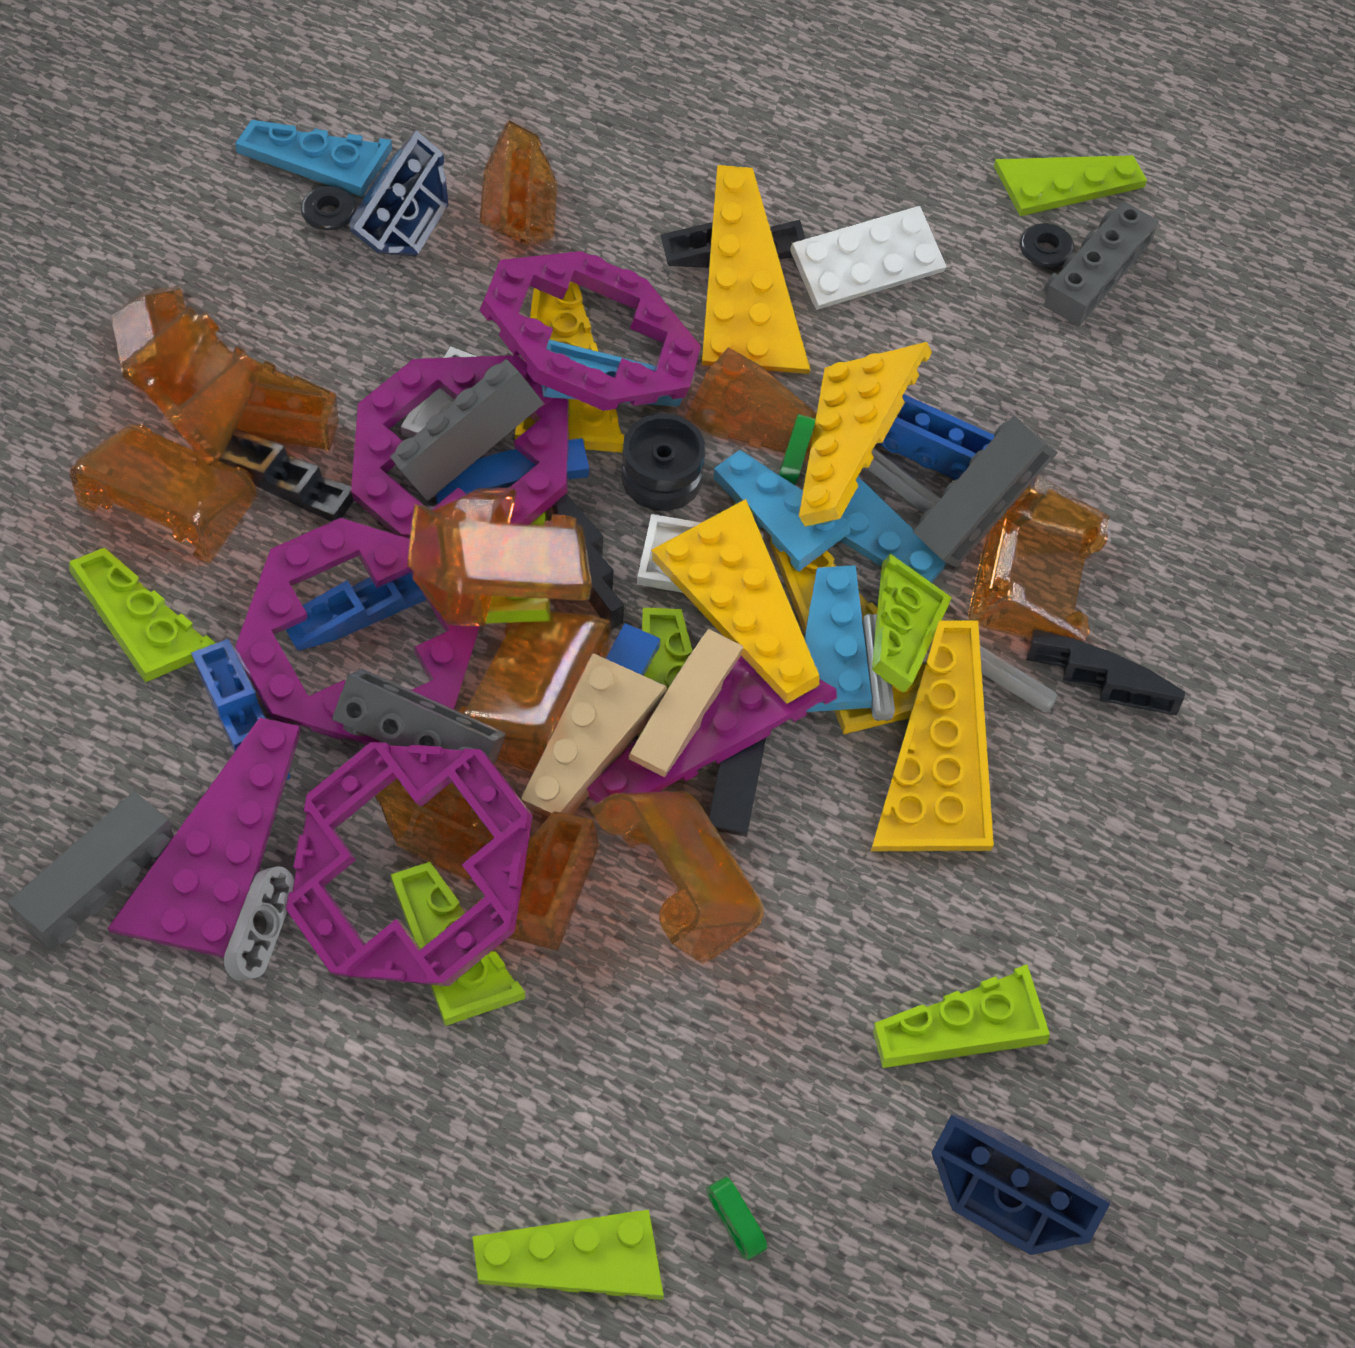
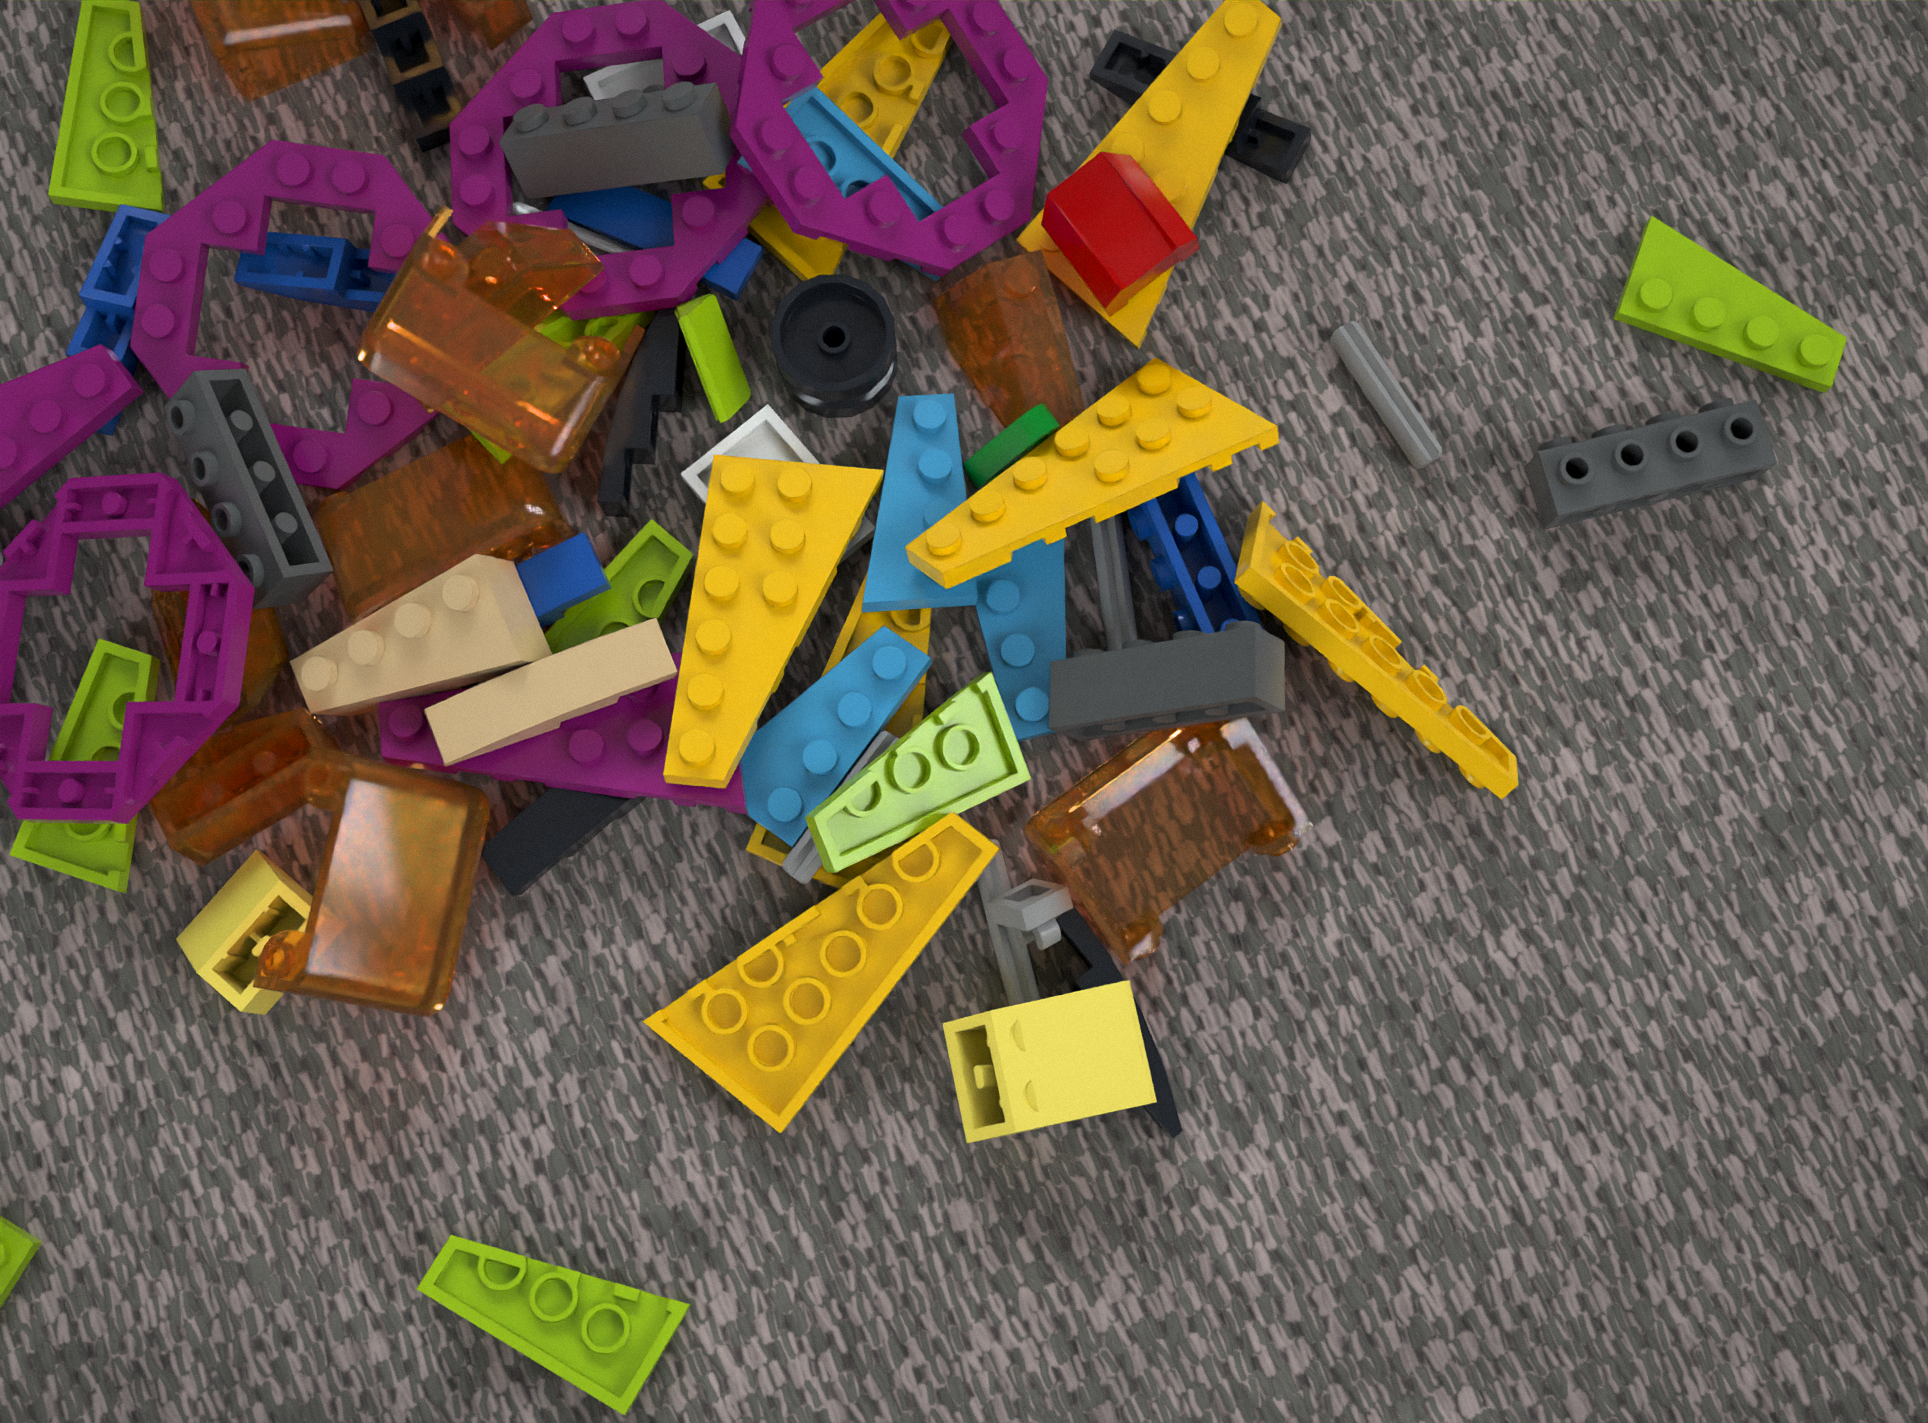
camera: 45 degrees right, 20 degrees up
(601, 510) = (714, 355): none -> lime slope
(623, 953) = (235, 926): none -> light yellow slope
(736, 1218) = (108, 1331): green beam -> none
(756, 315) = (1116, 228): none -> red slope
(867, 257) = (1351, 242): white plate -> none
(949, 314) = (1386, 395): none -> light grey axle
(1014, 645) = (1032, 911): none -> light grey tile
(1046, 233) = (1619, 366): black piece -> none
(1058, 424) = (1362, 648): none -> yellow wing
(1095, 701) = (1049, 1062): none -> light yellow slope

